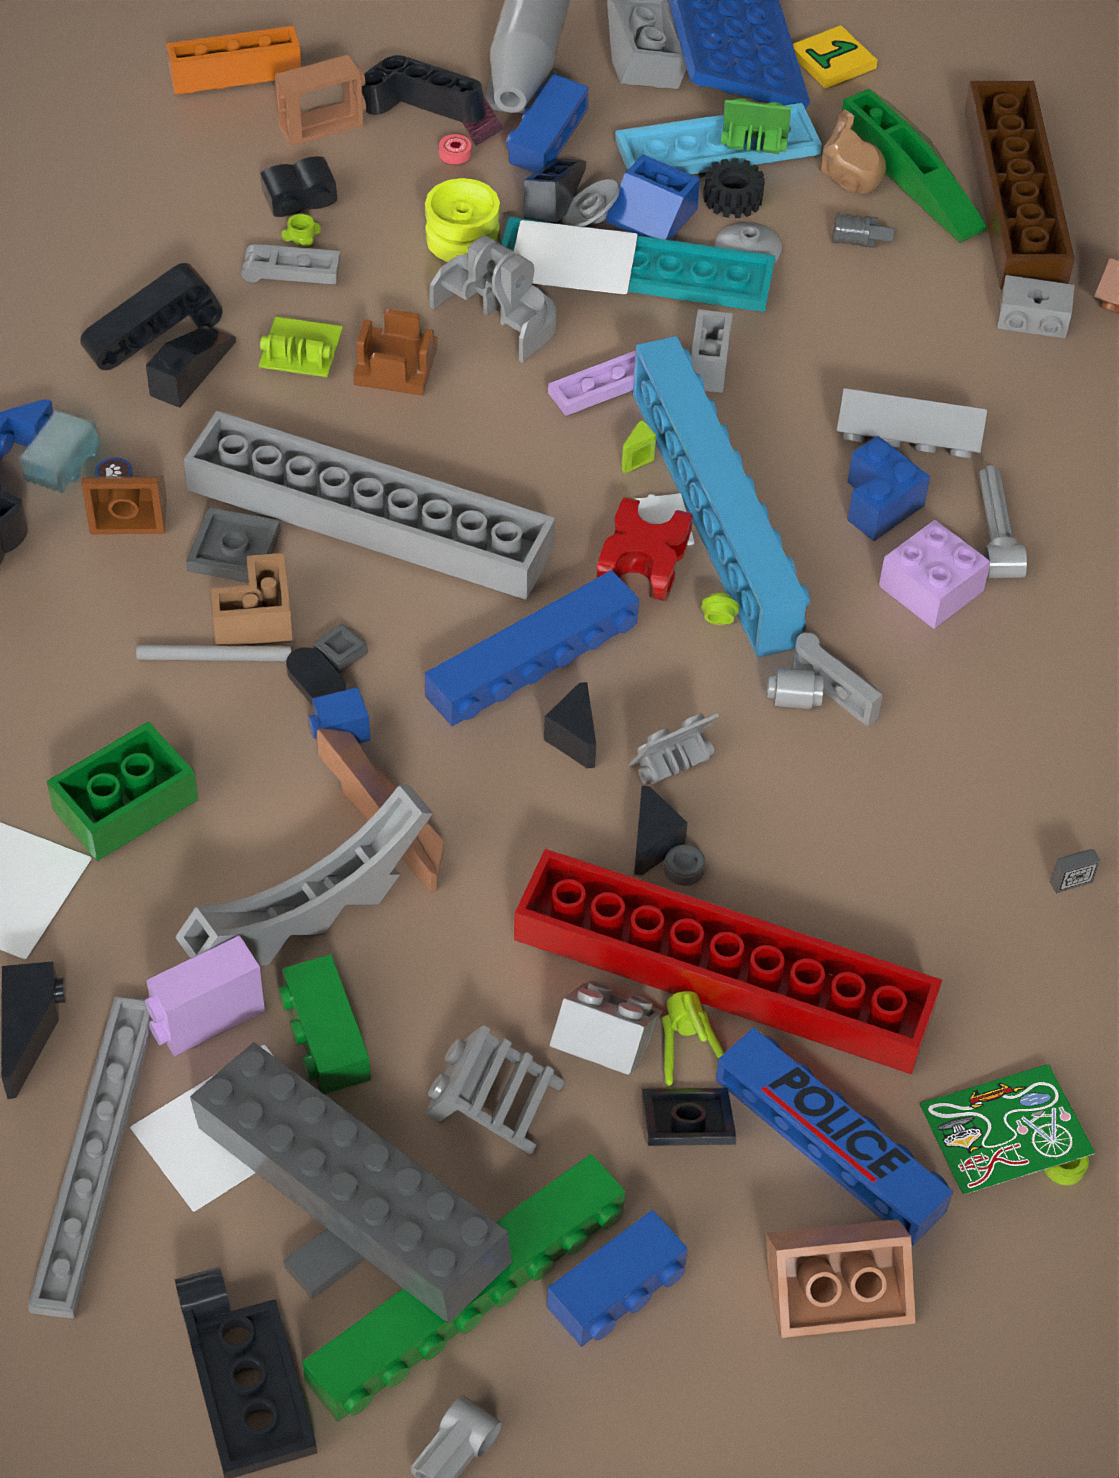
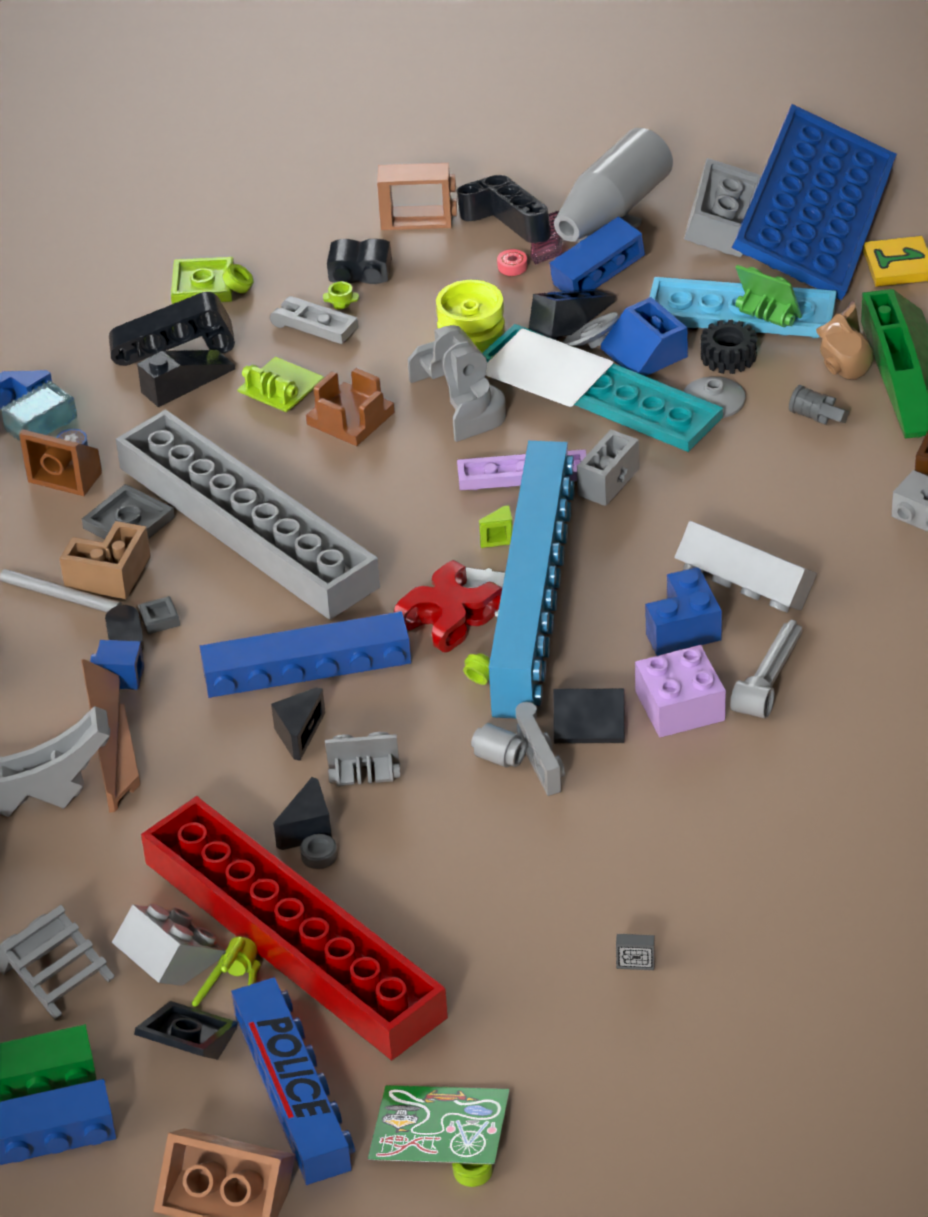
camera: 30 degrees right, 10 degrees down
(136, 249) = (200, 276): none -> lime tile
(179, 237) = (238, 278): none -> lime tile
(232, 59) = (365, 148): orange brick -> none
(858, 624) = (589, 715): none -> black slope

